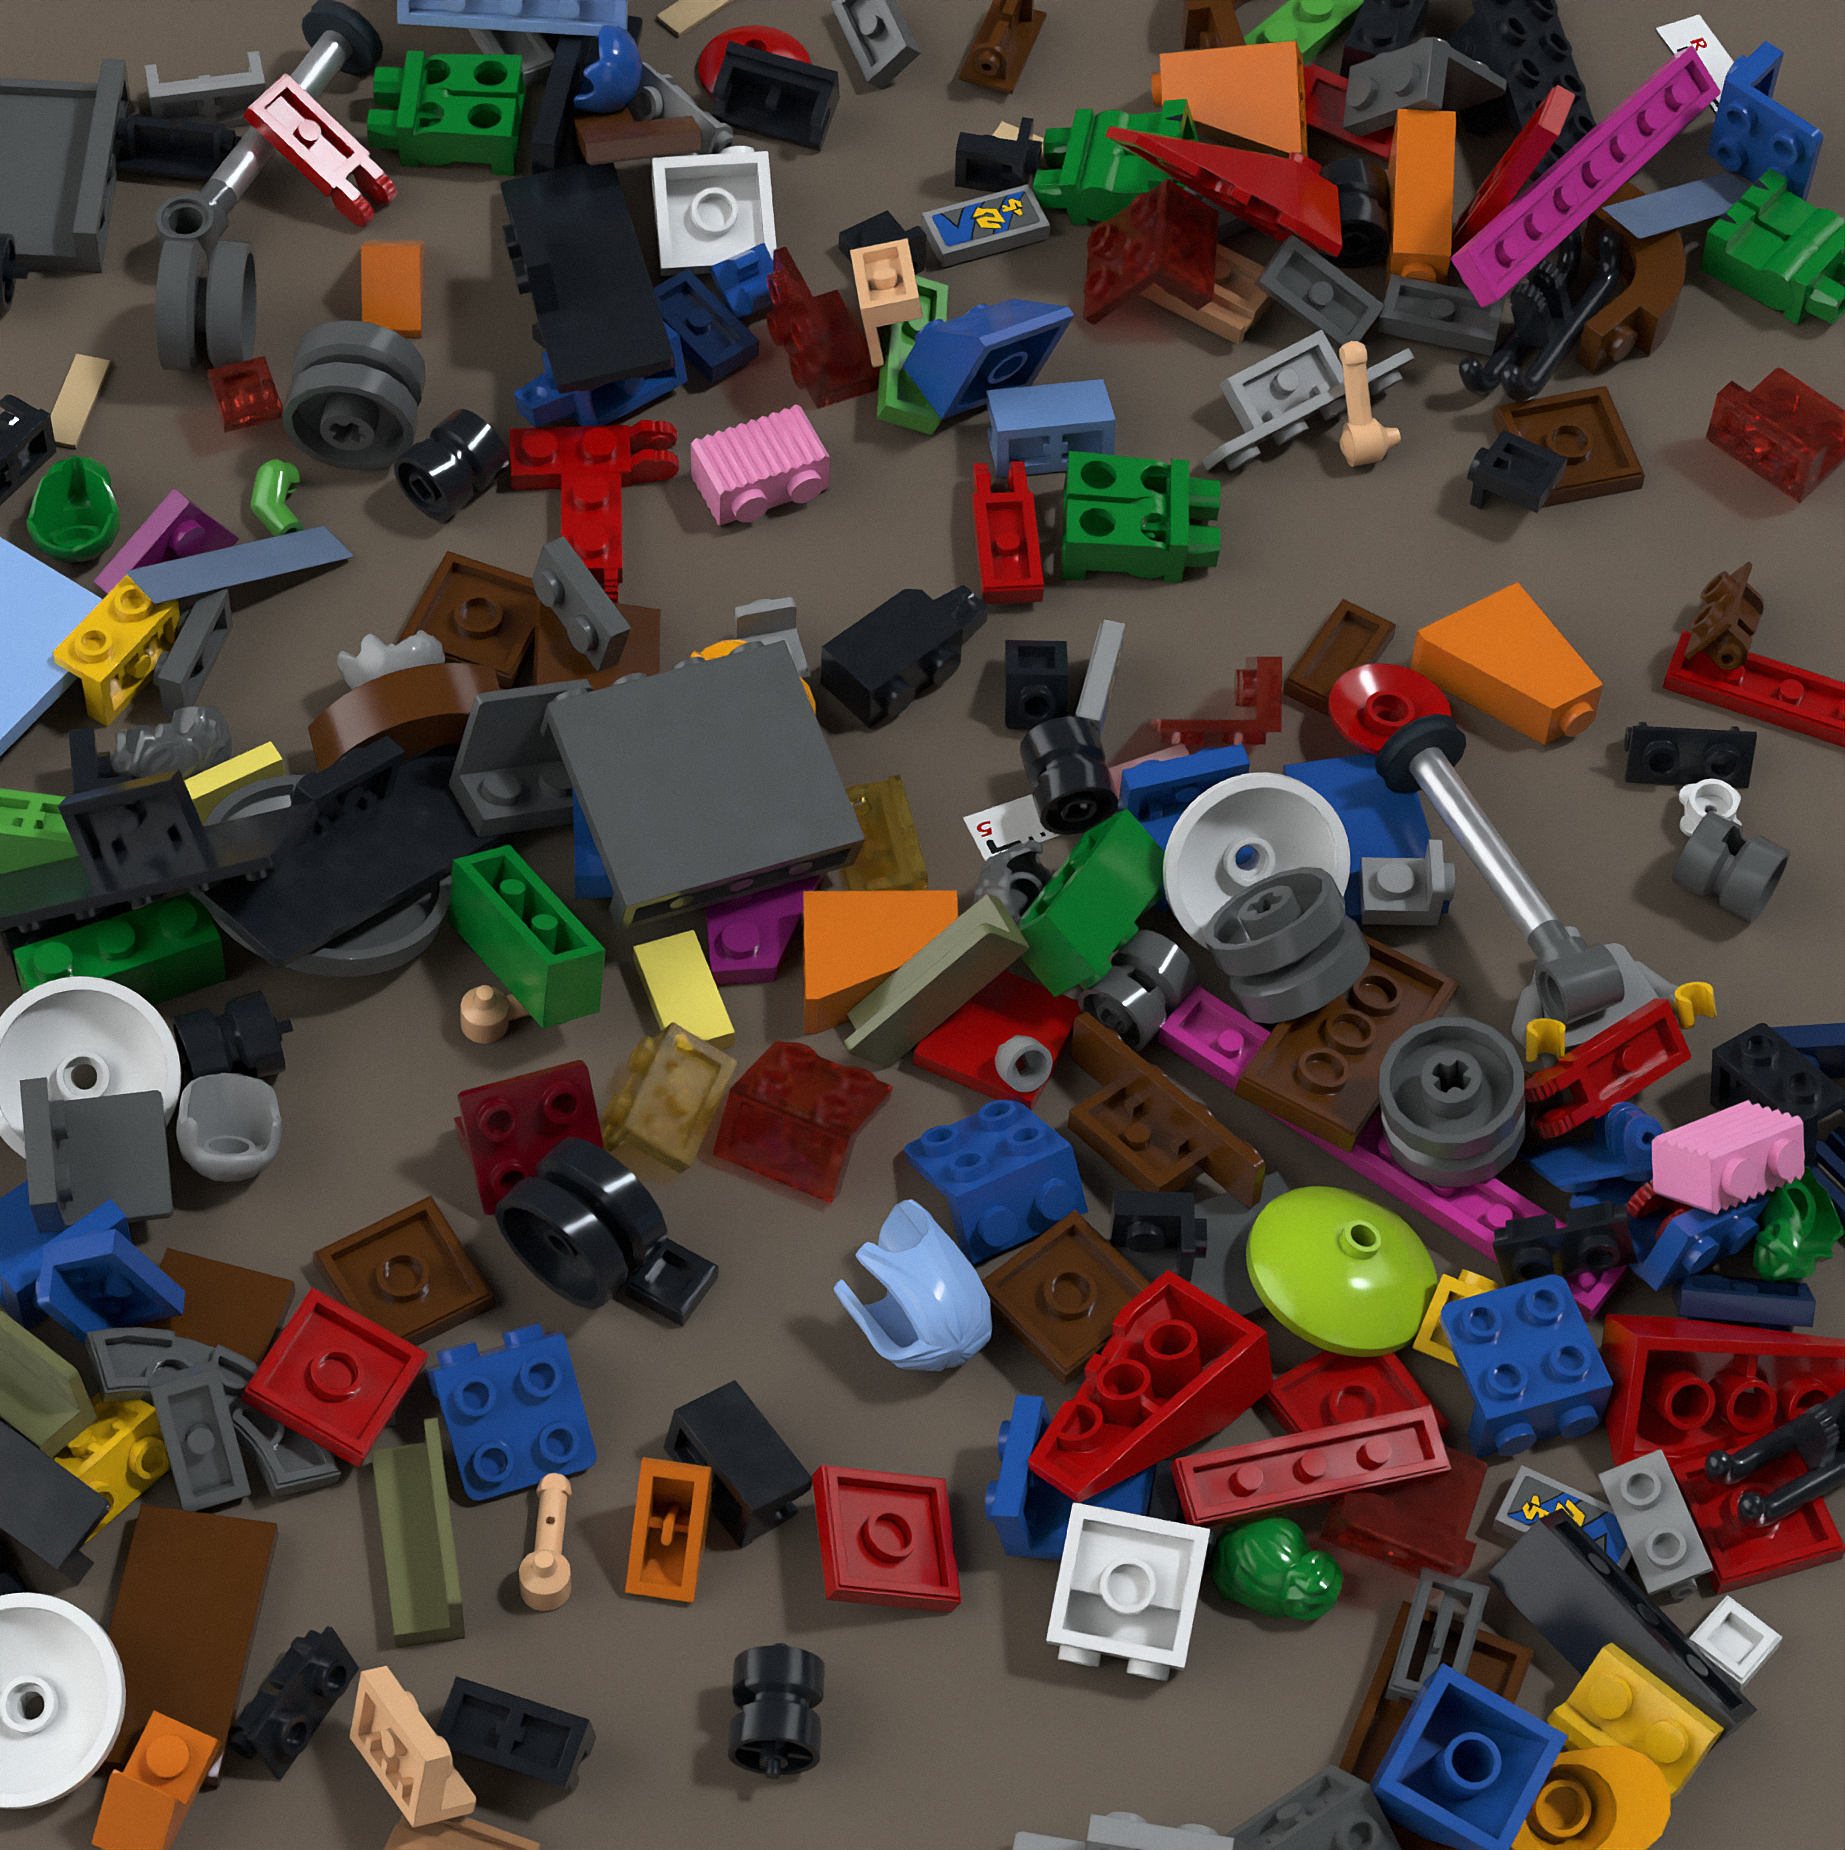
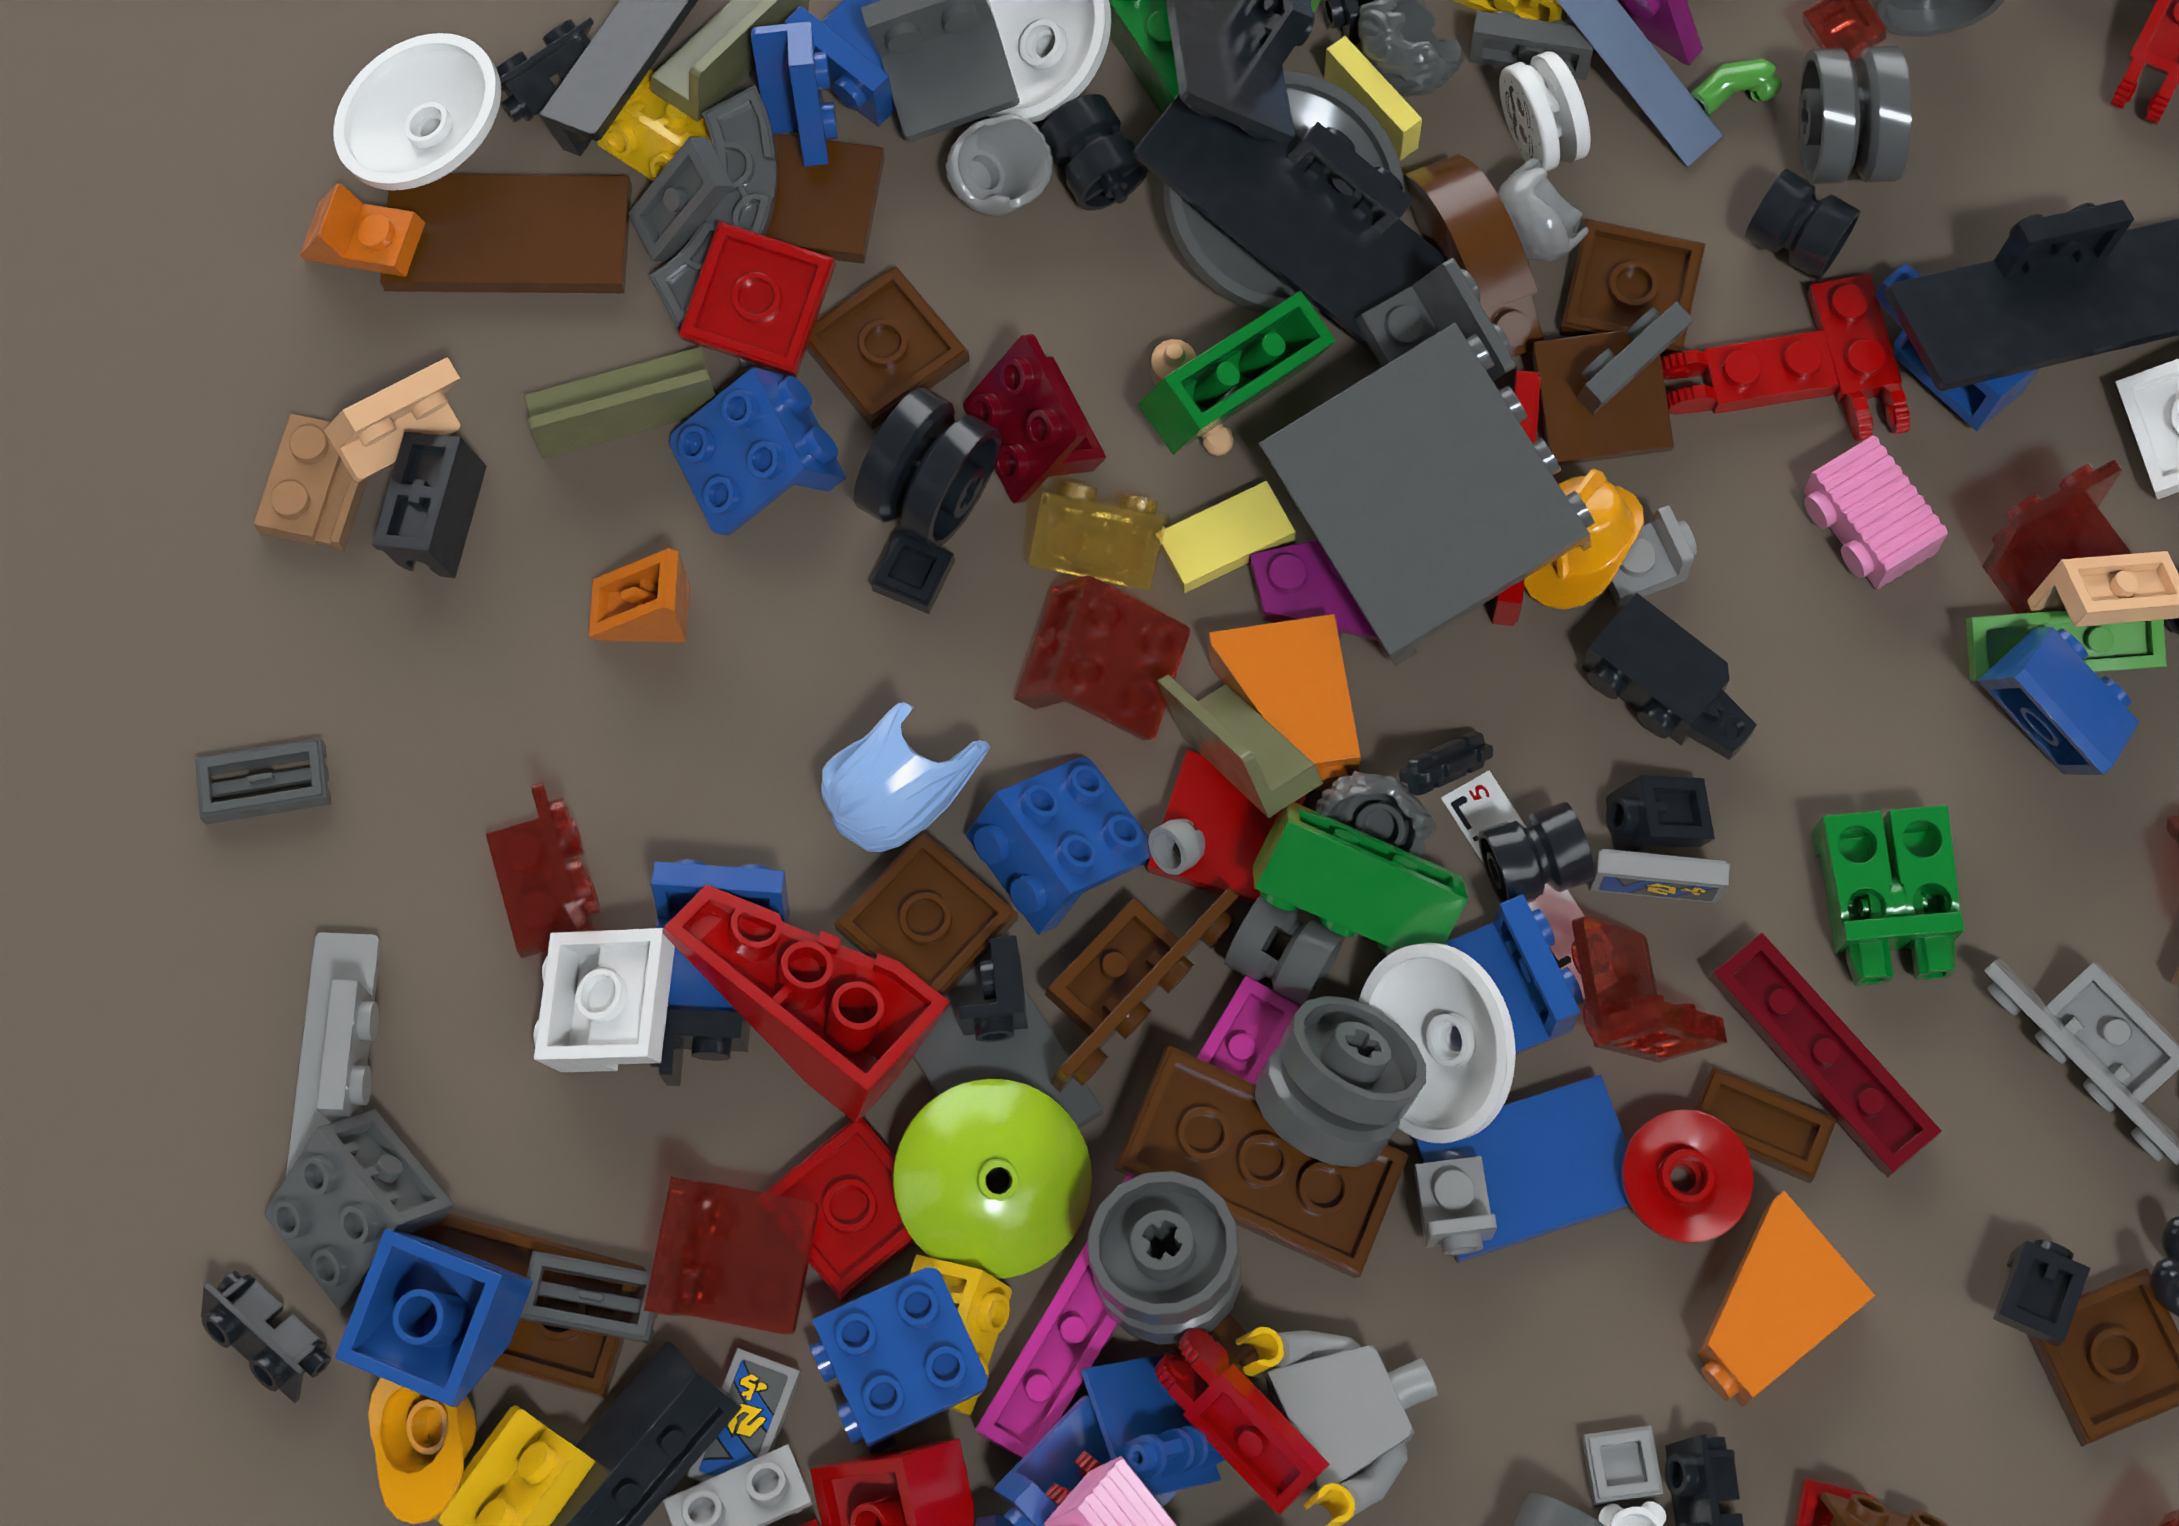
camera: 90 degrees right, 15 degrees up
(282, 643) = (1545, 110): none -> white head
(310, 1682) = (439, 325): black hinge -> none
(393, 285) = (2035, 137): orange slope -> none
(546, 1572) = (598, 510): light nougat piece -> none
(706, 327) = (2050, 430): dark blue plate -> none
(744, 281) = (2137, 466): blue tile -> none
(750, 1463) = (719, 647): black hinge -> none
(777, 1725) = (456, 714): black wheel -> none
(886, 1539) = (651, 786): red tile -> none
(891, 848) = (1420, 693): clear yellow hinge -> none
(968, 829) = (1446, 763): none -> black axle
(973, 1645) = (540, 878): none -> clear red bracket
(1006, 538) = (1843, 765): red hinge -> none
(1048, 422) = (1996, 792): medium blue hinge -> none
(1274, 1570) = (667, 1135): green hair -> none
(1280, 596) = (1825, 1055): none -> dark red plate
(1310, 1467) = (745, 1155): red tile -> none
(1363, 437) = (2063, 1124): light nougat piece -> none
(1569, 974) = (1345, 1371): piece -> none
(1592, 1242) = (1027, 1412): black hinge -> none
(1644, 812) = (1622, 1465): none -> light grey tile

